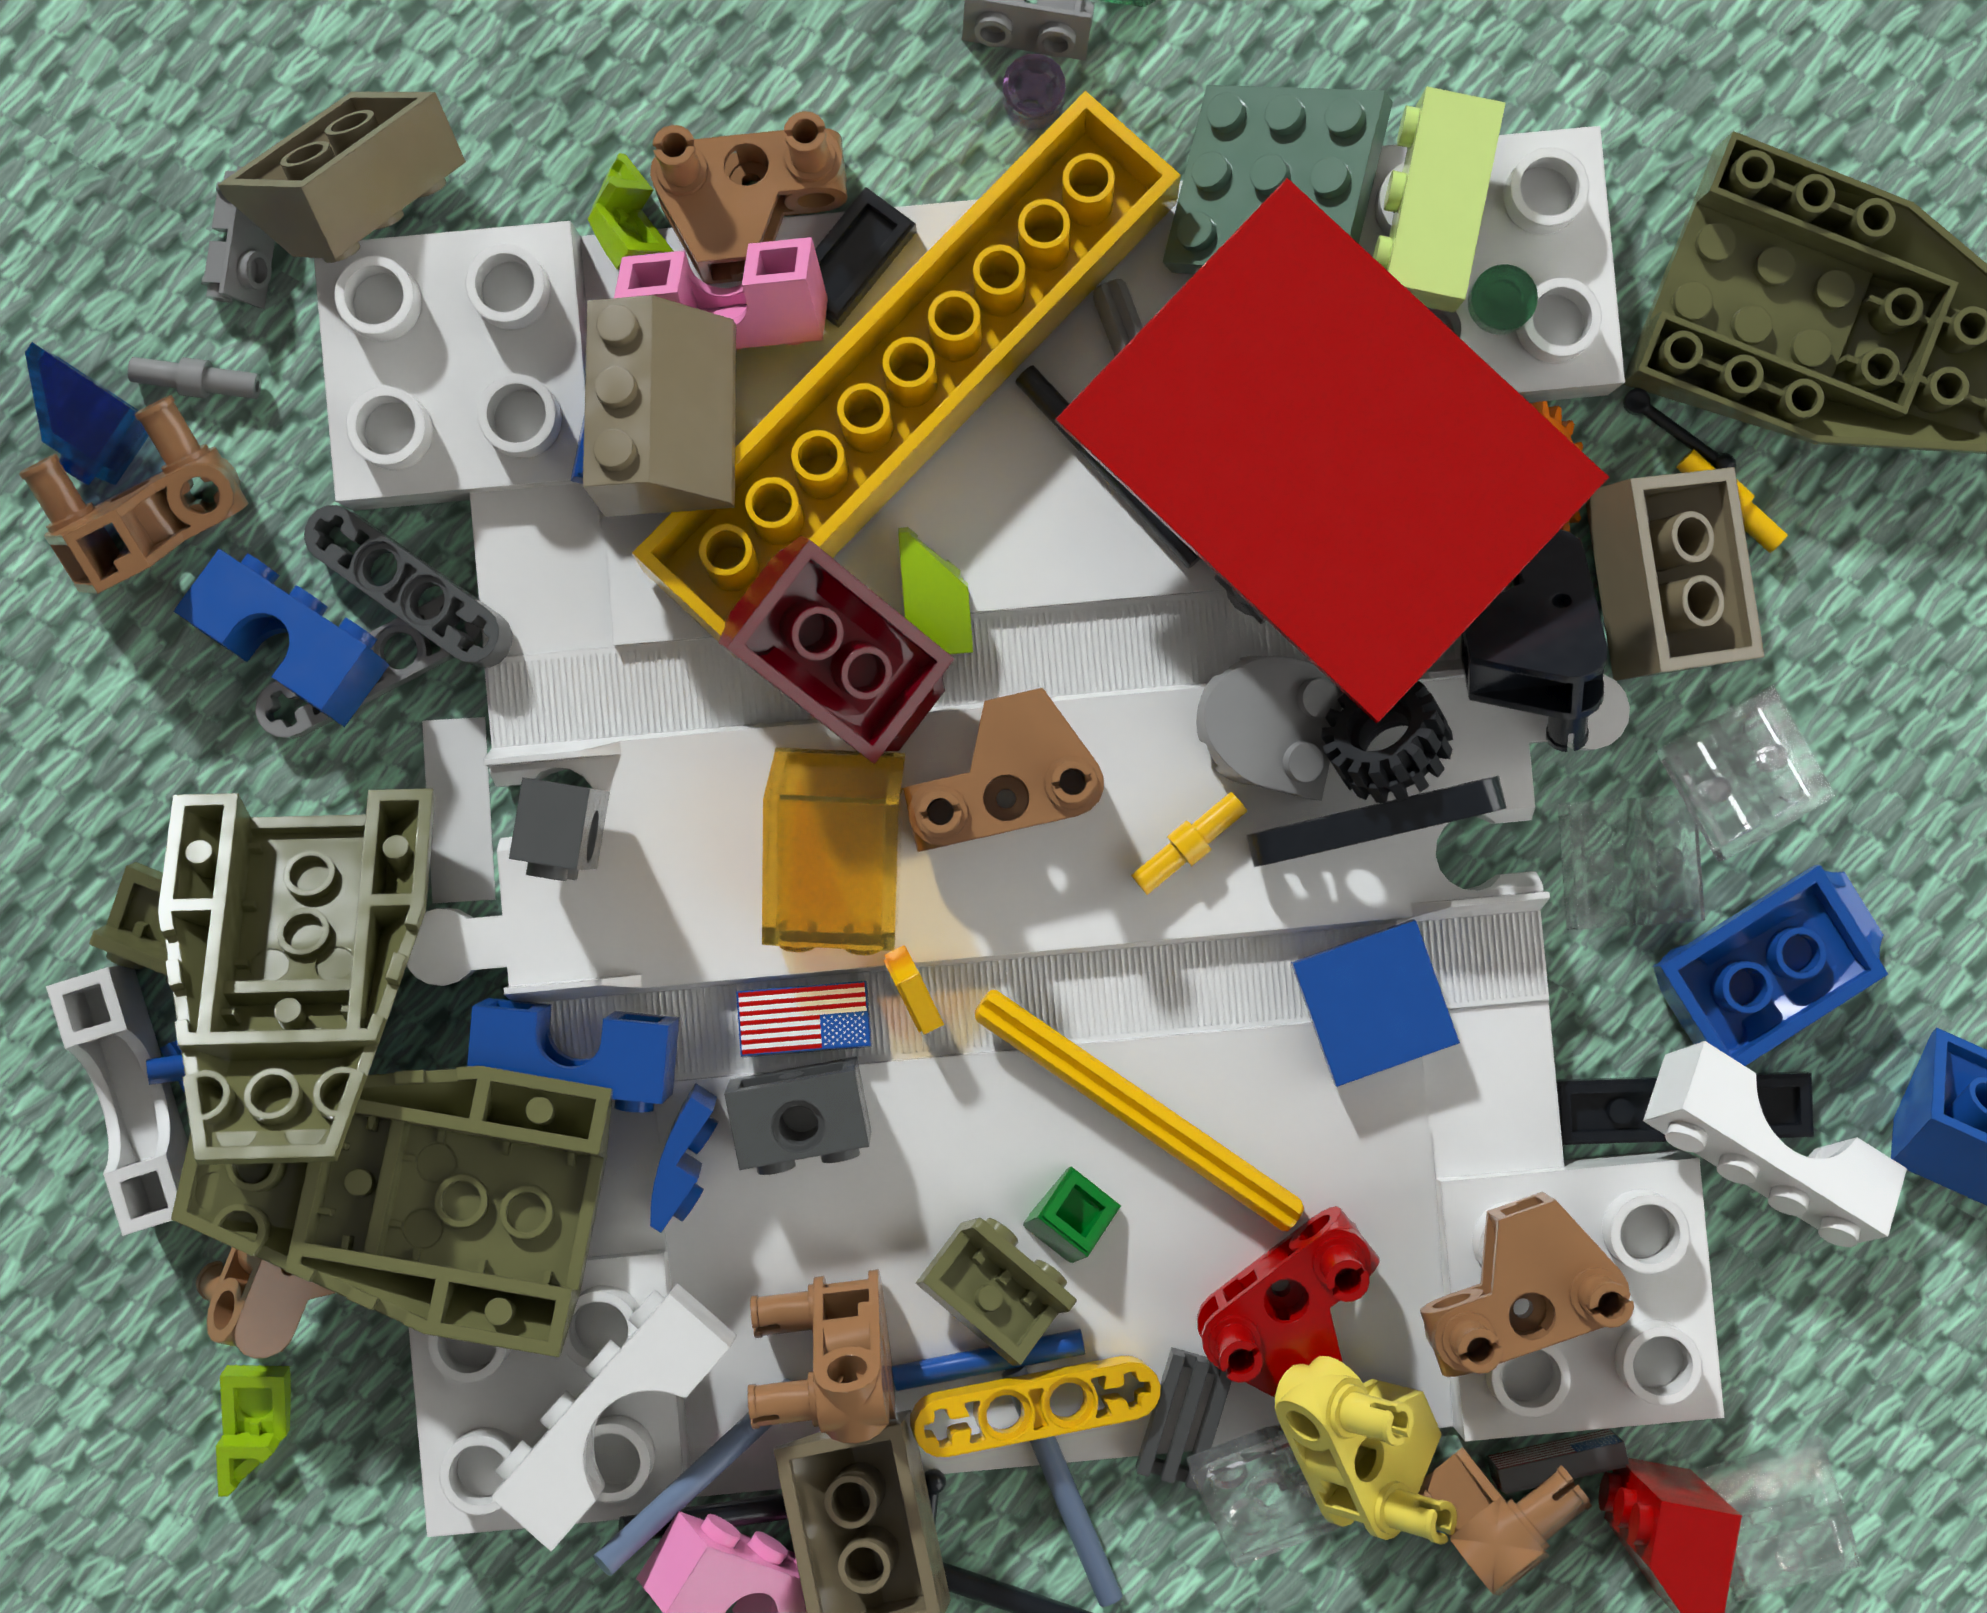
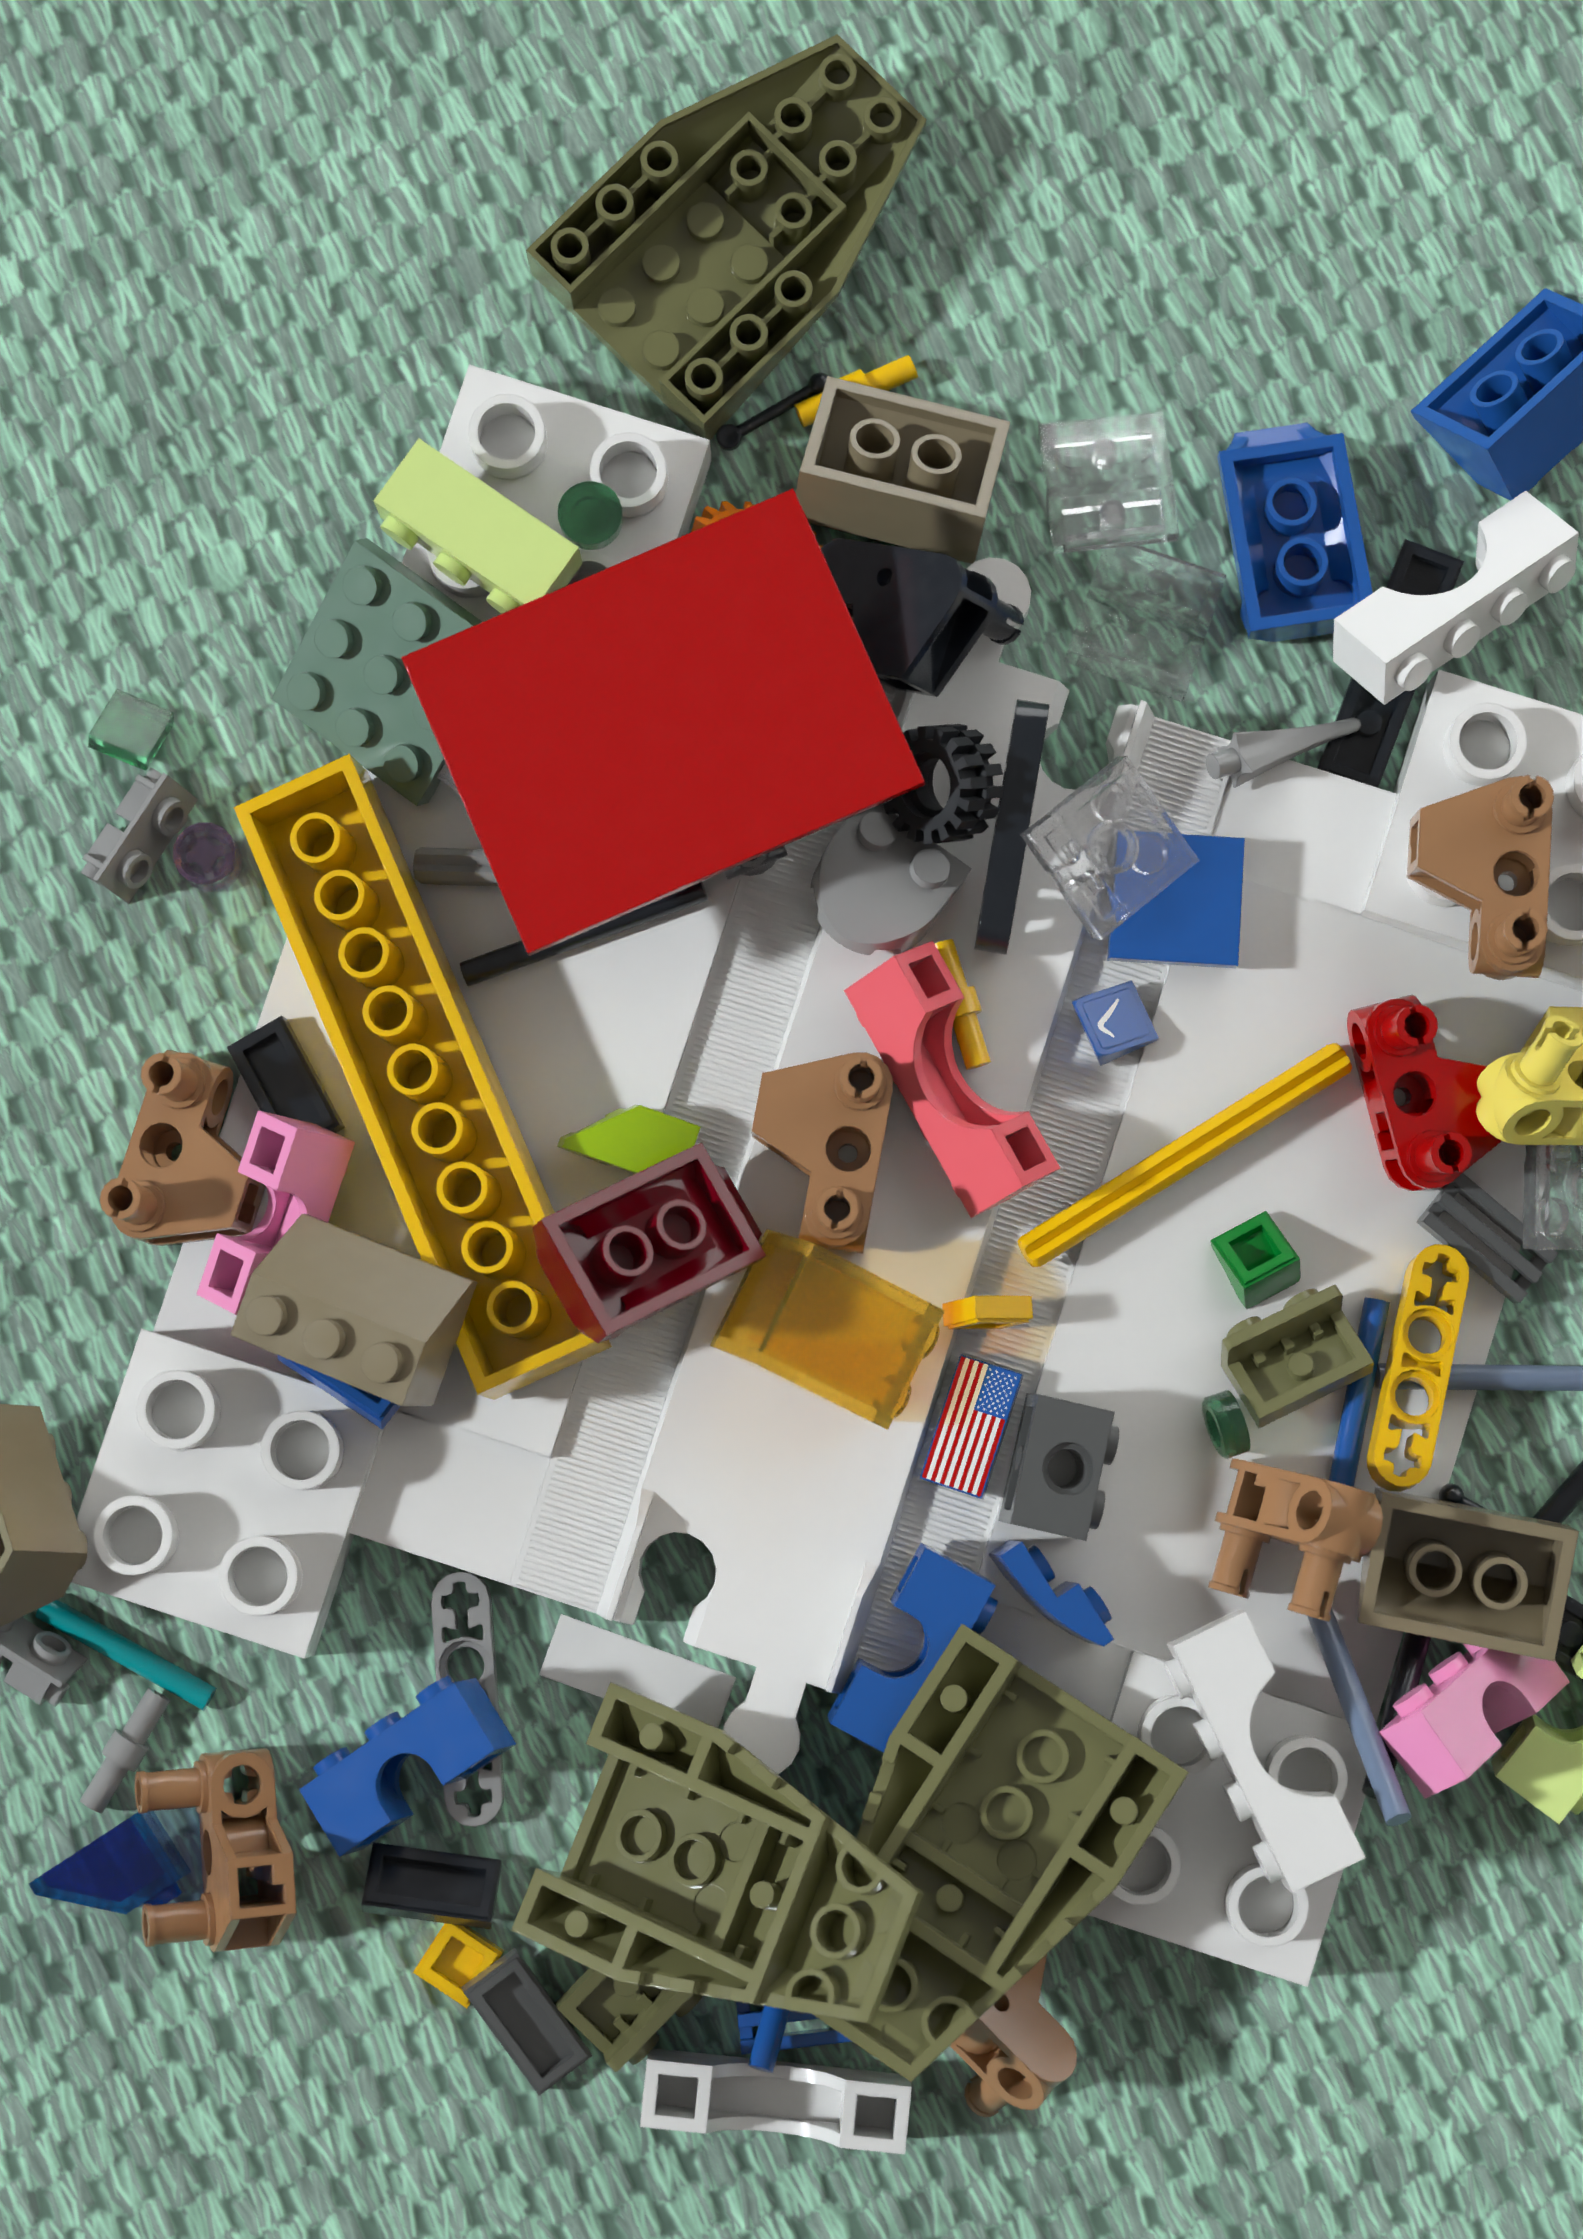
camera: 70 degrees left, 5 degrees down
(106, 842) = (526, 2021): none -> dark grey tile
(136, 759) = (455, 1959): none -> yellow tile
(190, 705) = (431, 1885): none -> black tile
(253, 1420) = (1129, 2118): lime slope -> none
(282, 344) = (127, 1653): none -> teal bar
(407, 586) = (412, 1631): dark grey beam -> none
(558, 828) = (702, 1566): dark grey brick -> none
(619, 216) = (152, 1286): lime slope -> none
(905, 1252) = (1226, 1424): none -> clear green tile
(1153, 803) = (910, 1019): none -> coral arch
(1235, 994) = (1115, 1021): none -> slope
(1394, 921) = (1110, 847): none -> clear hinge
(1549, 1022) = (1259, 751): none -> light grey piece

